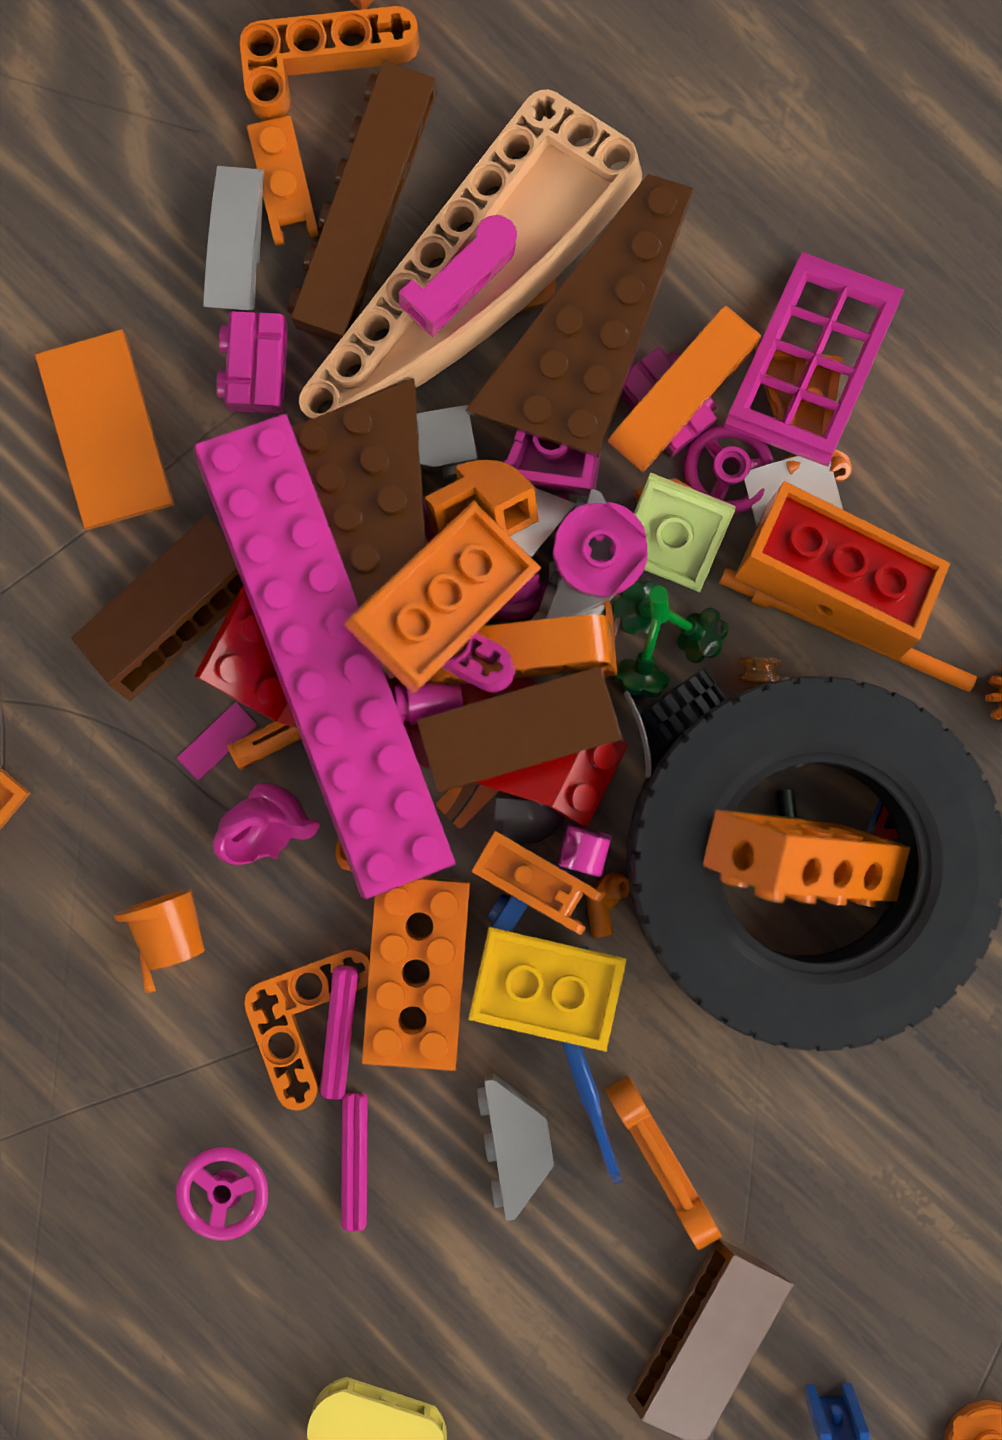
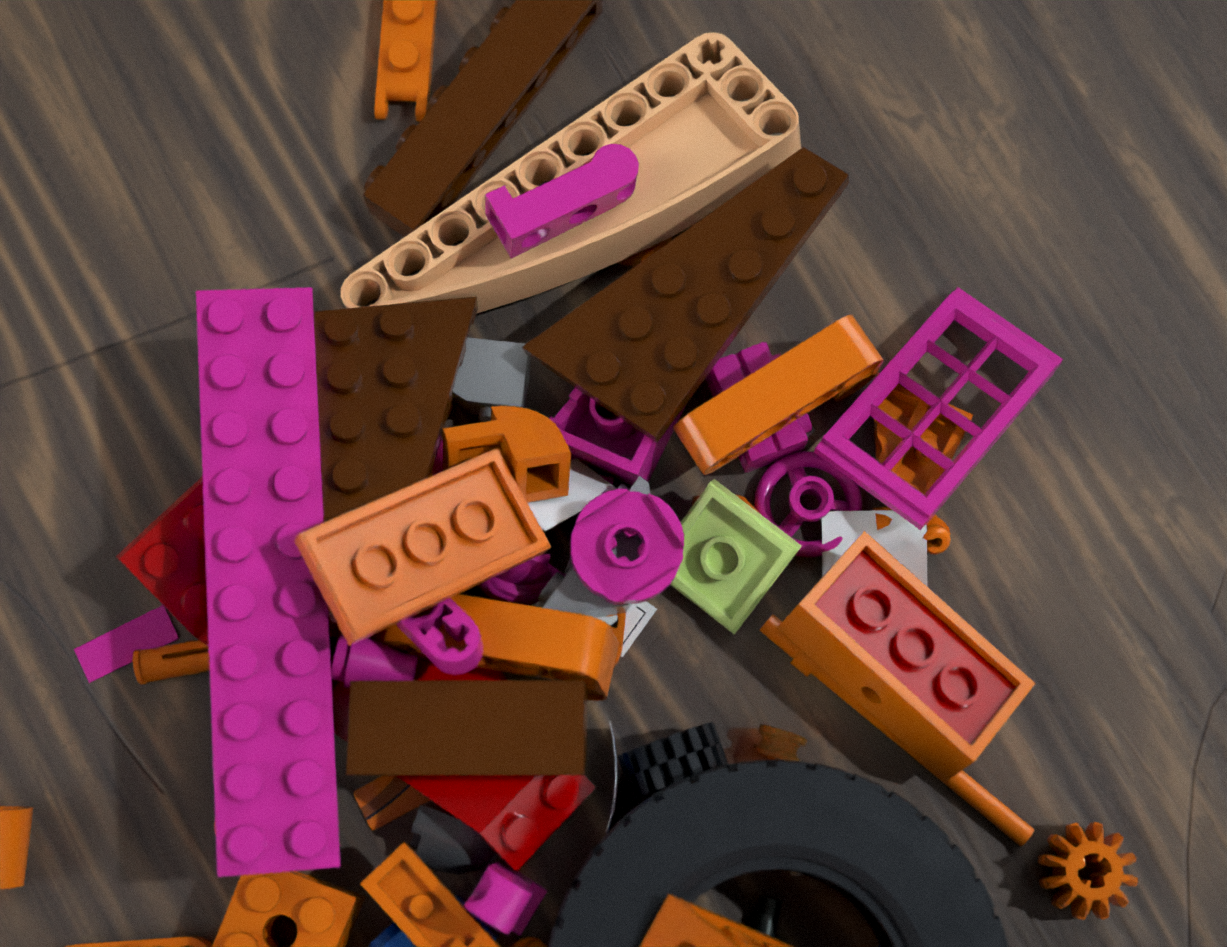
camera: 15 degrees right, 10 degrees down
(104, 429) = (121, 261): orange tile -> none
(162, 610) = (106, 478): reddish brown brick -> none
(234, 238) = (330, 97): light grey slope -> none
(253, 362) = (308, 233): dark pink brick -> none
(262, 825) = (139, 756): dark pink hair -> none
(645, 609) = (662, 636): dark green plant -> none

